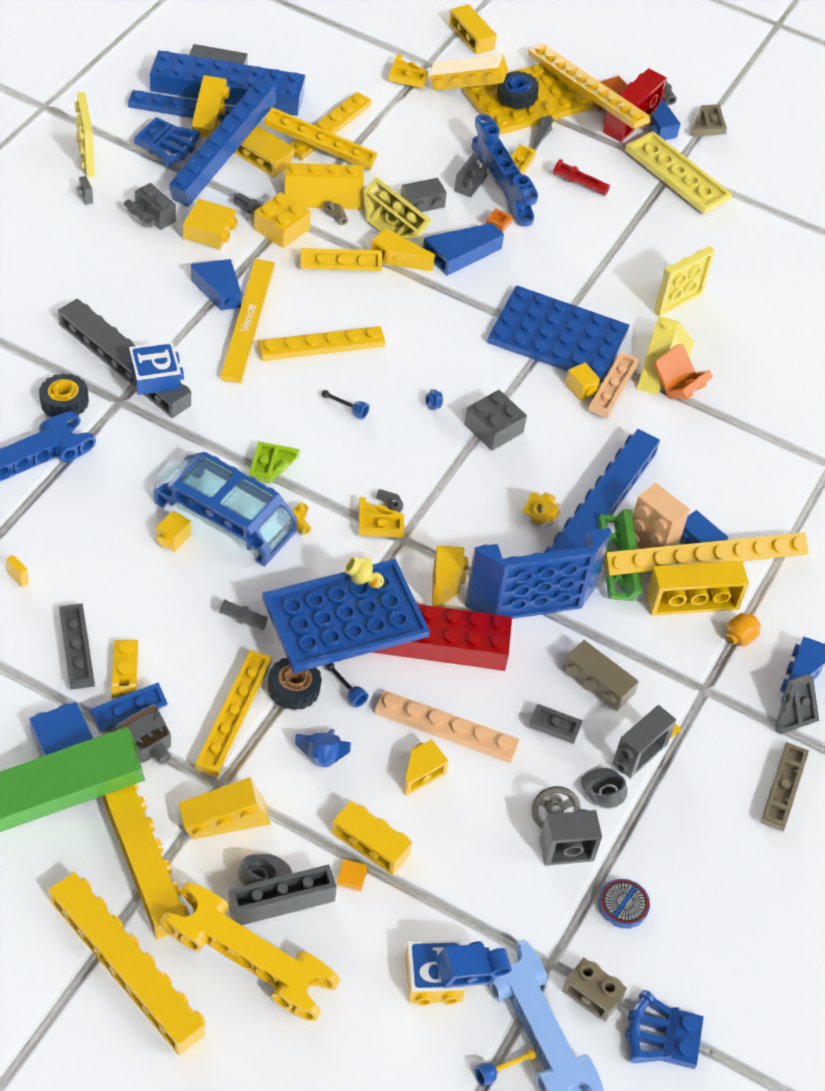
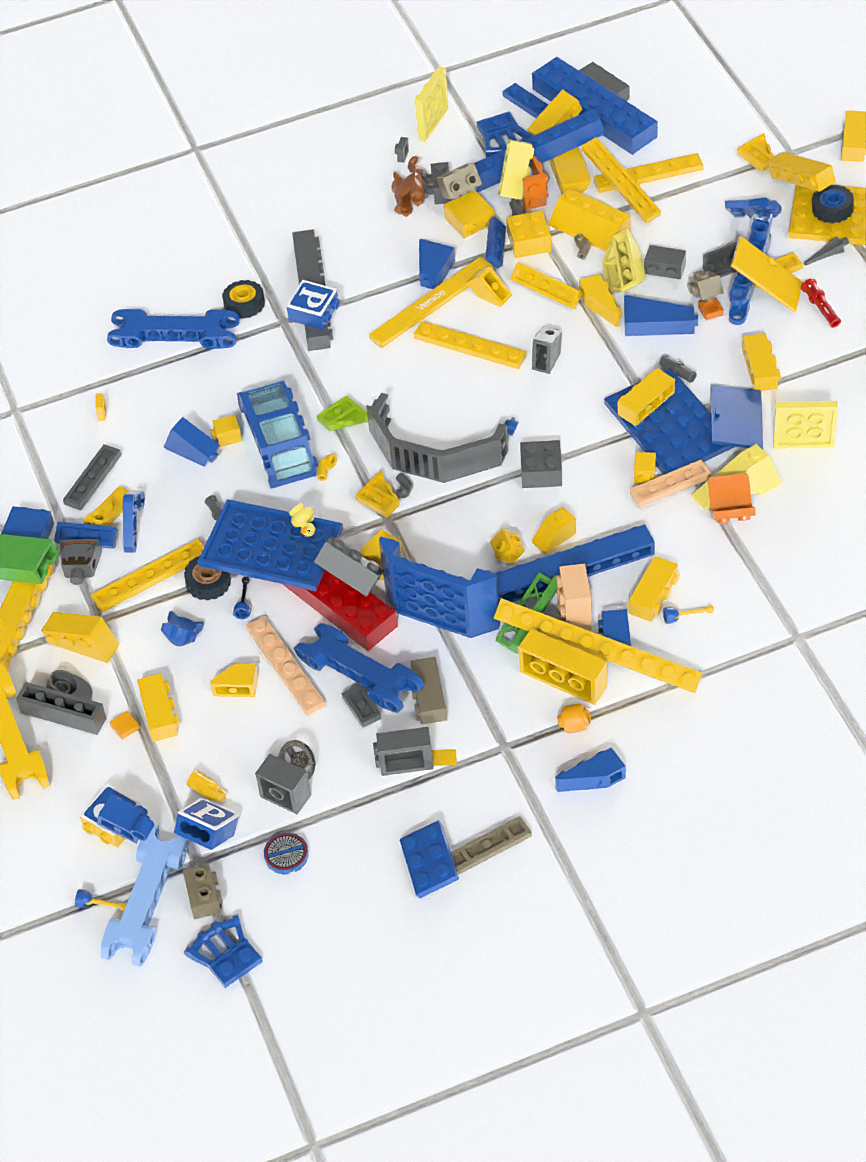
camera: 50 degrees right, 0 degrees up
(134, 222) = (408, 189): none -> dark orange animal
(151, 560) = (191, 443): none -> blue slope
(162, 648) = (132, 503): none -> beam
(186, 194) = (459, 181): none -> brick
(225, 163) = (515, 168): none -> light yellow brick
(250, 169) = (535, 187): none -> orange bracket
(257, 240) = (495, 242): none -> blue plate
(291, 282) = (489, 287): none -> yellow slope
(359, 409) = (449, 405): blue hinge -> none
(382, 468) = (431, 462): none -> dark grey panel
(402, 308) = (546, 343): none -> torso
(448, 594) = (349, 565): none -> brick
(464, 115) = (750, 207): none -> blue plate
(483, 200) = (705, 285): none -> brick
(493, 886) = (206, 786): none -> yellow hinge
(528, 283) = (678, 368): none -> dark grey pin
(529, 168) = (767, 274): none -> yellow container
(530, 317) = (646, 396): none -> yellow brick
(539, 920) = (206, 823): none -> piece
(564, 473) = (555, 530): none -> yellow slope
(565, 687) = (383, 682): none -> blue piece
(584, 248) = (760, 362): none -> yellow brick
(605, 787) = (349, 769): dark grey cap -> none
(611, 303) = (736, 416): none -> container
(692, 481) = (653, 589): none -> yellow brick
(725, 497) = (671, 614): none -> hinge
(754, 828) = (429, 859): none -> blue plate
(798, 705) = (554, 794): dark grey wing -> none

